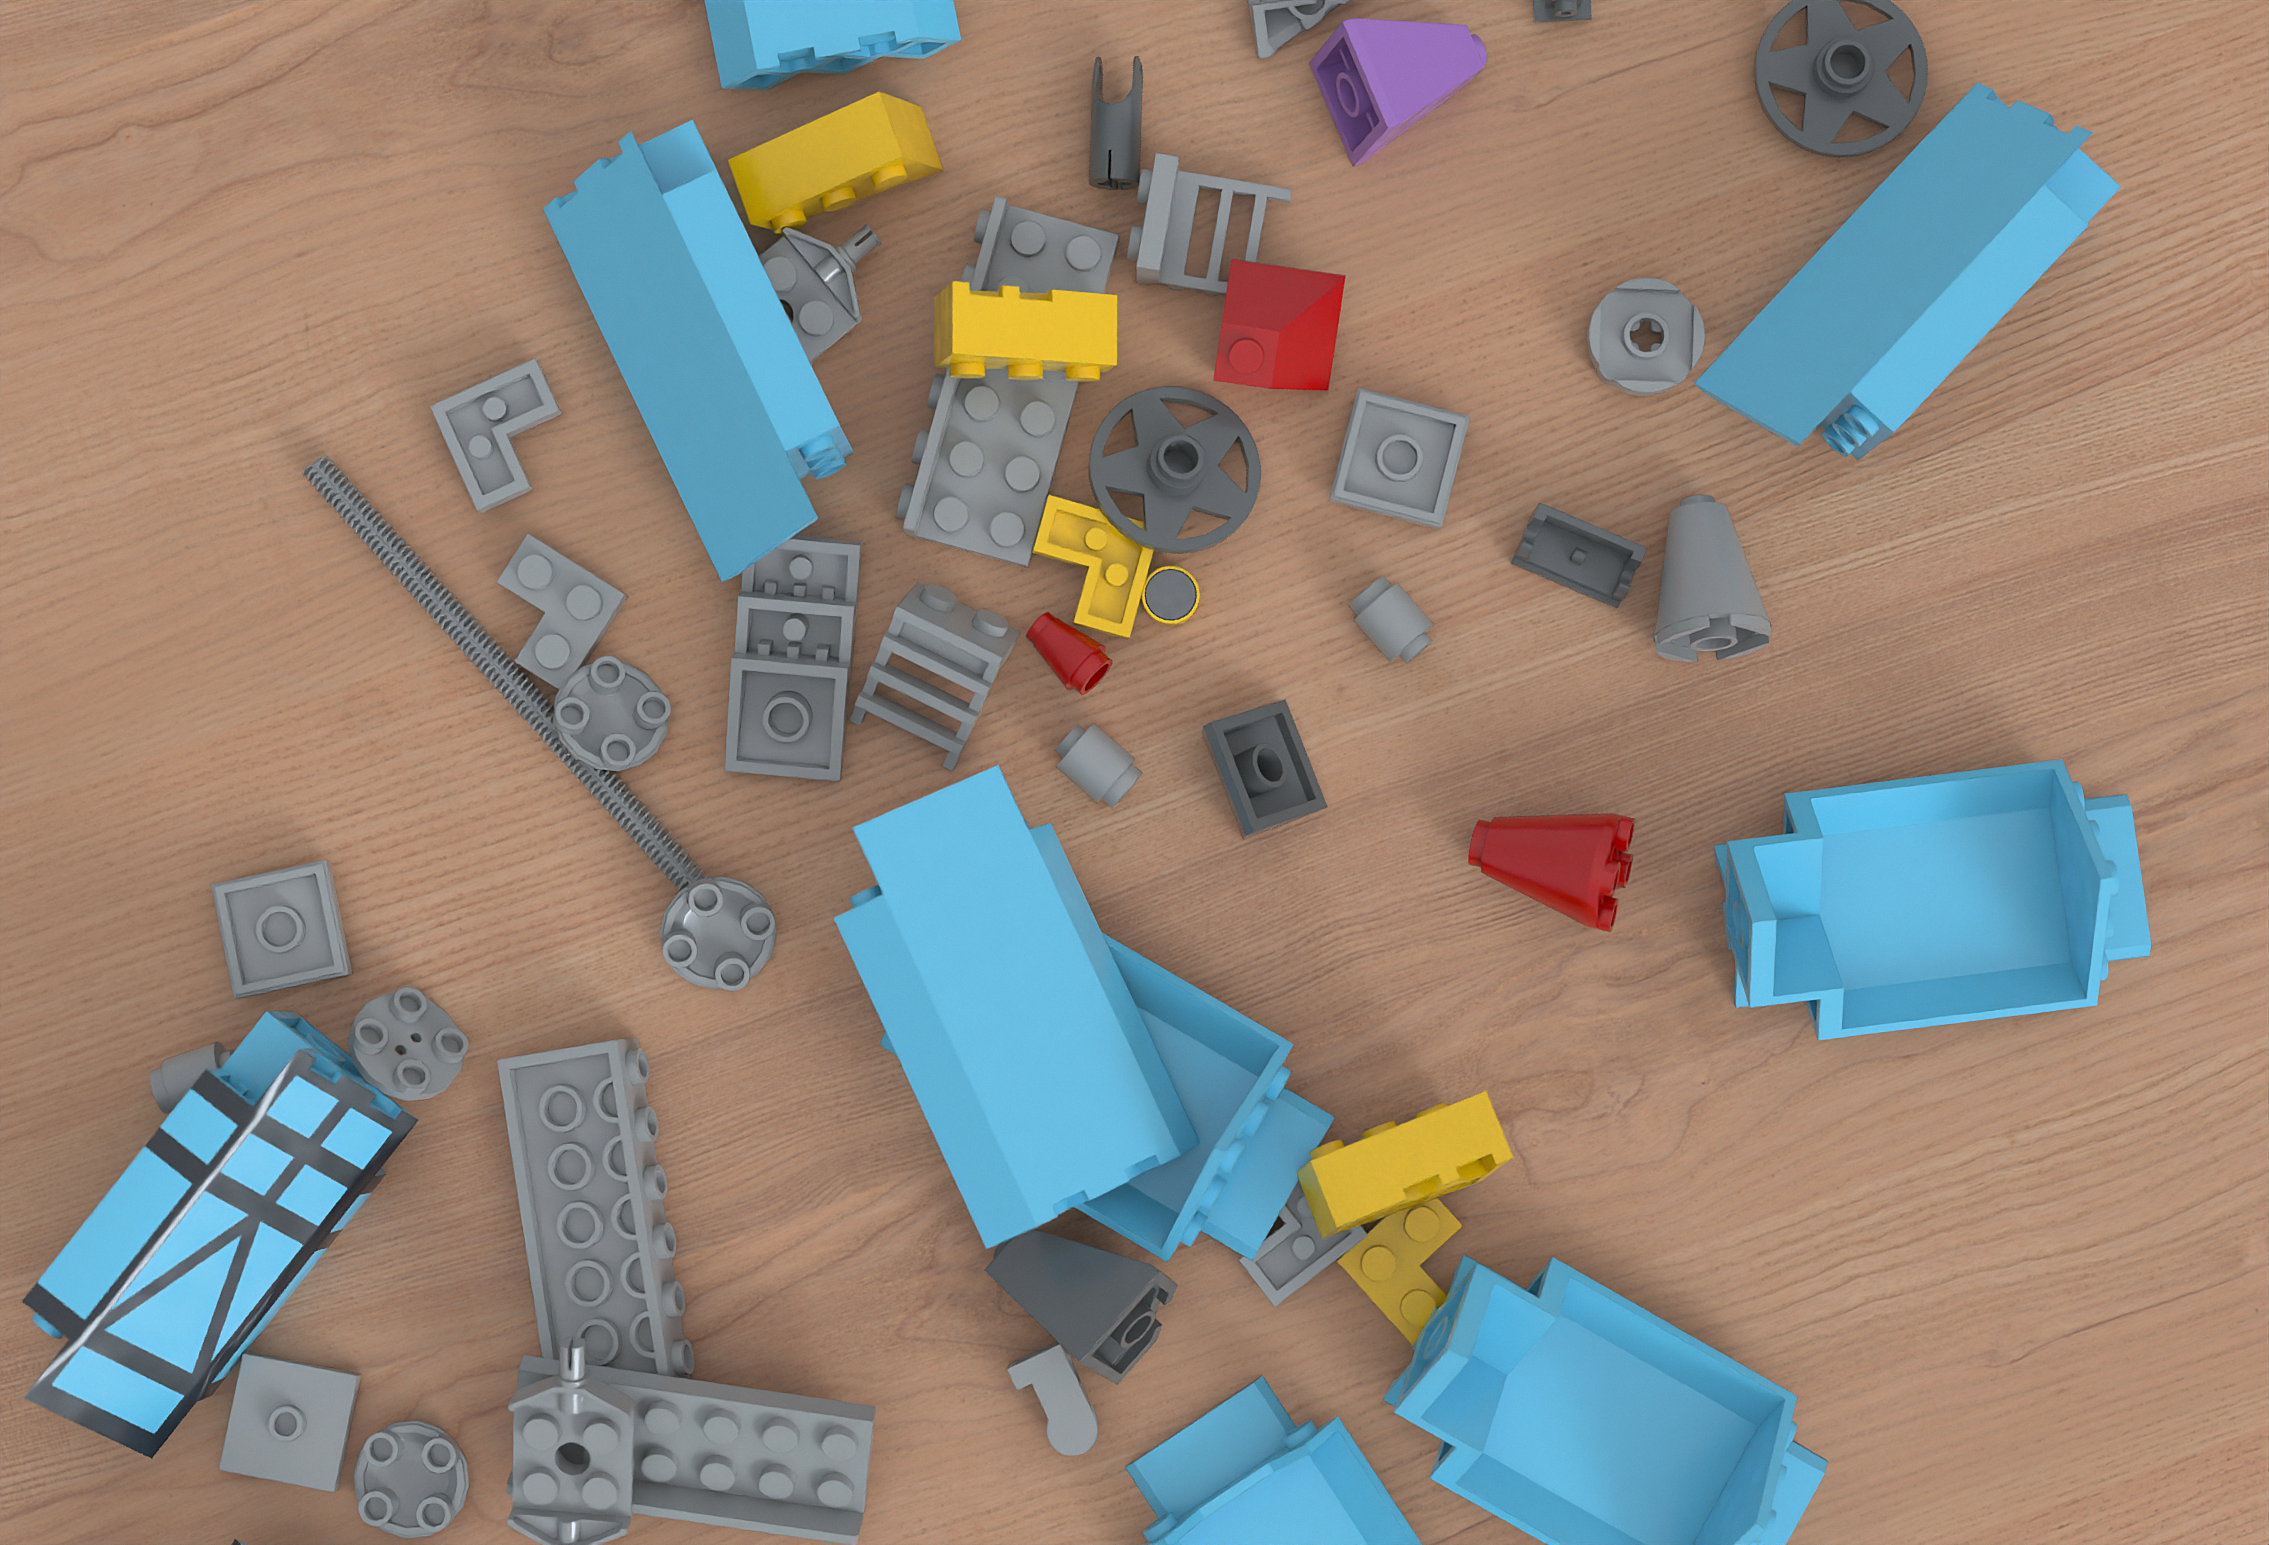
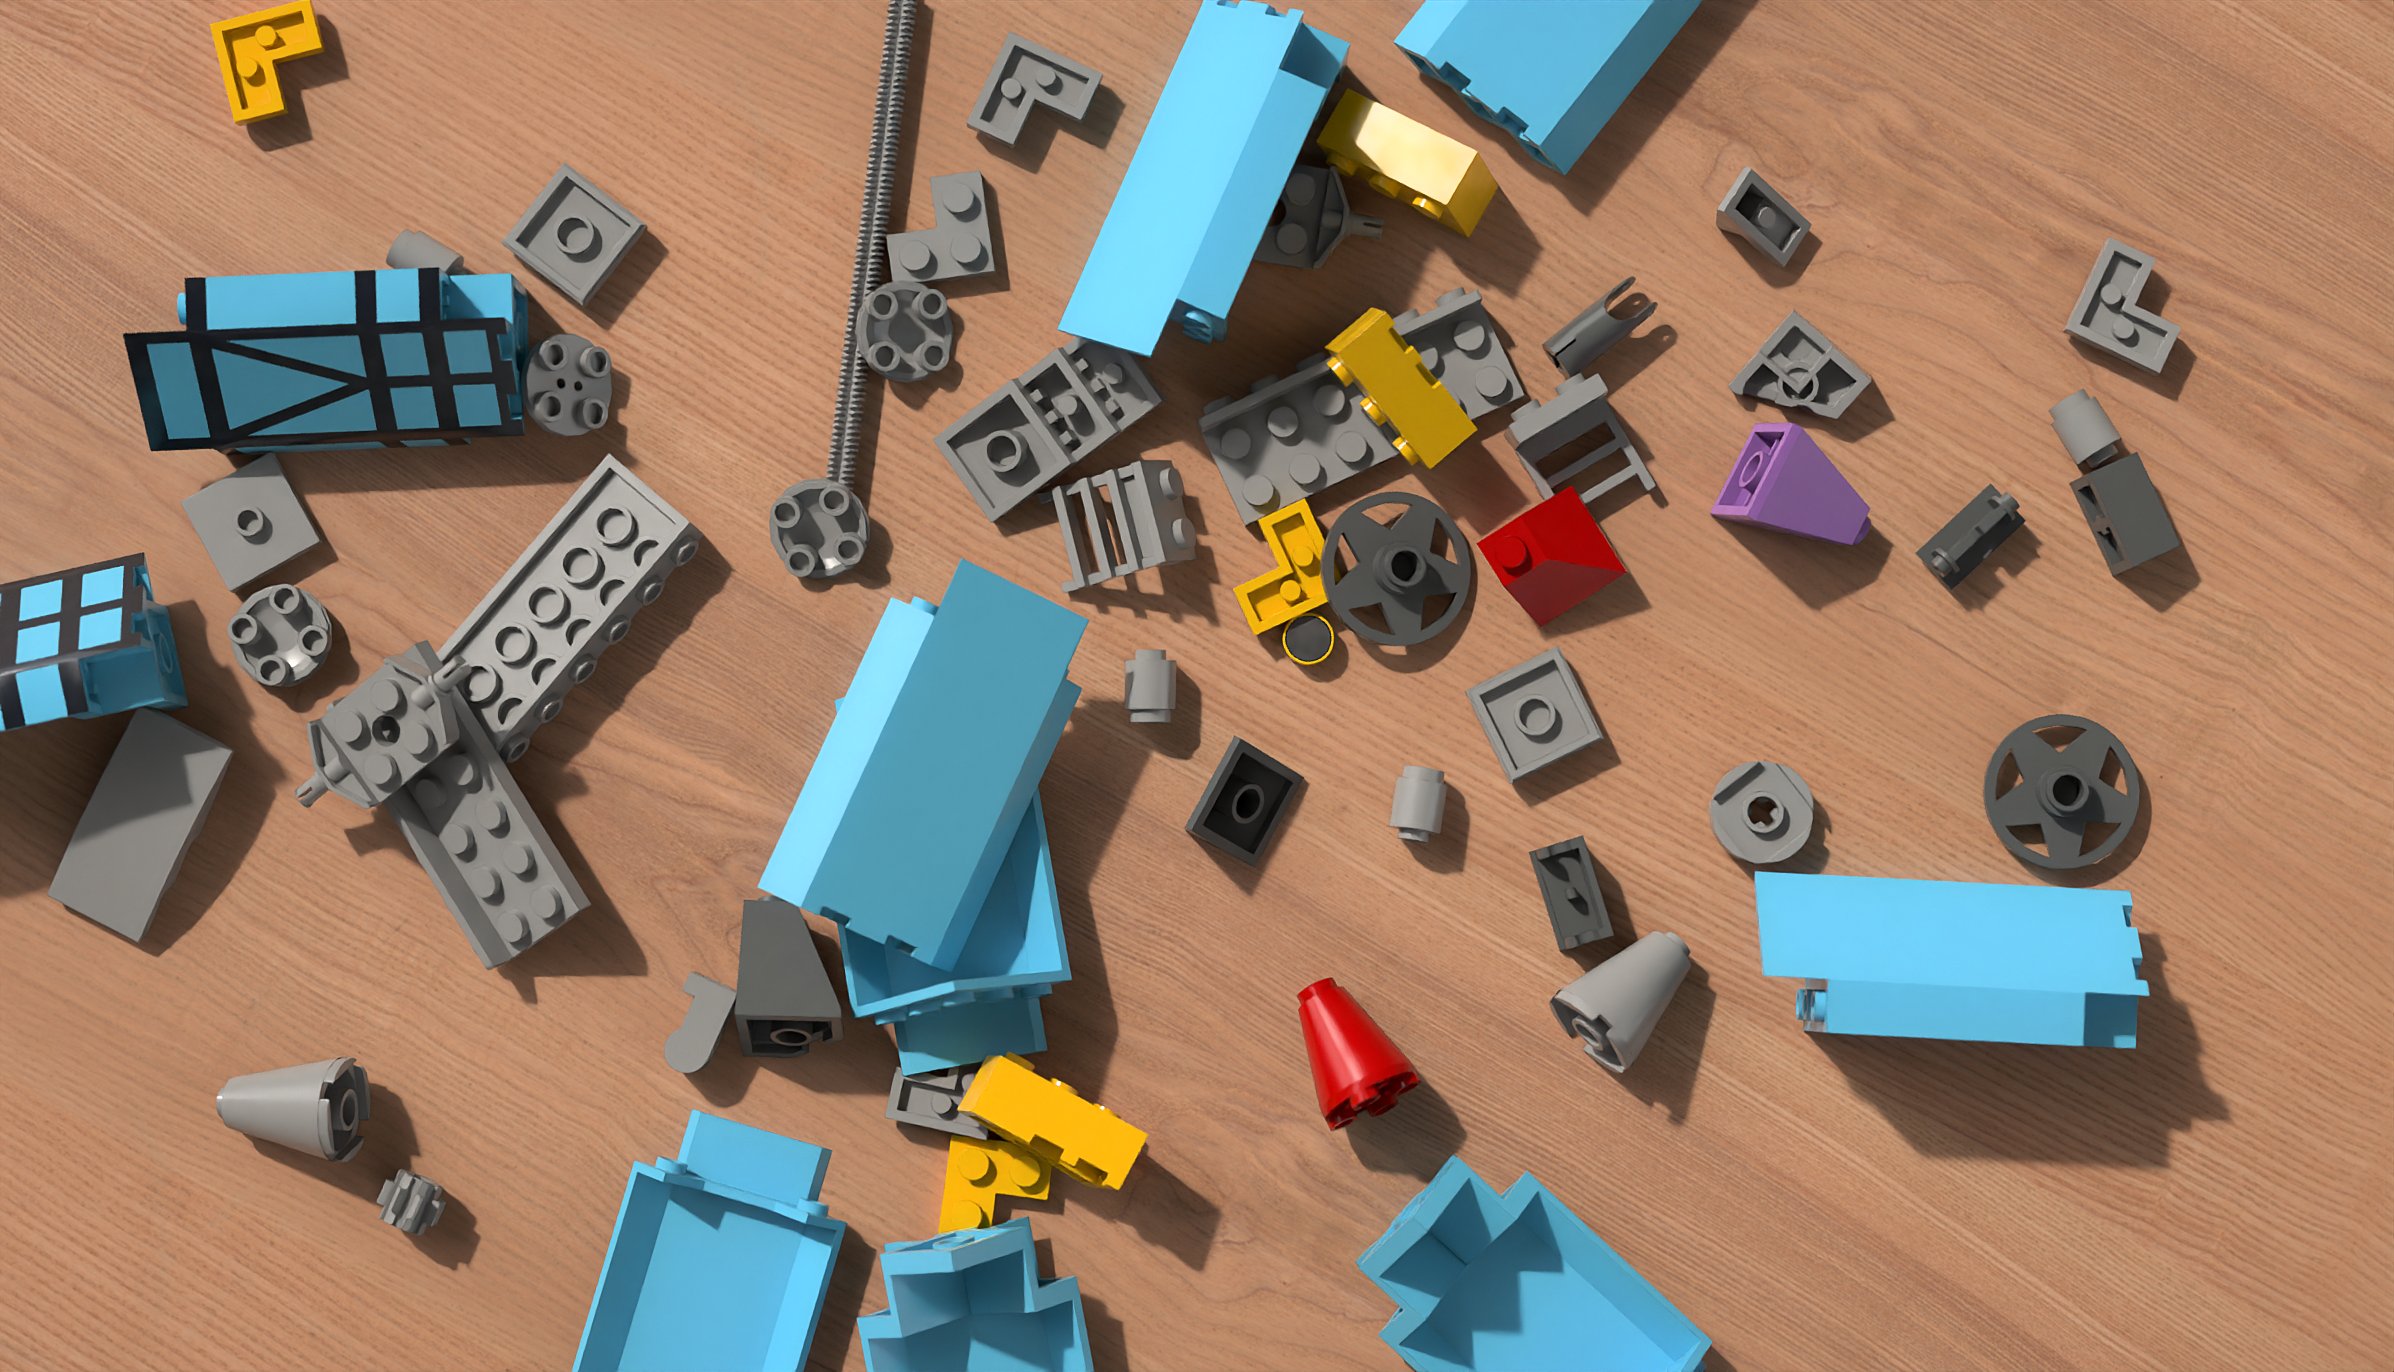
camera: 45 degrees right, 0 degrees up
(1069, 653) = (1210, 604): red cone -> none

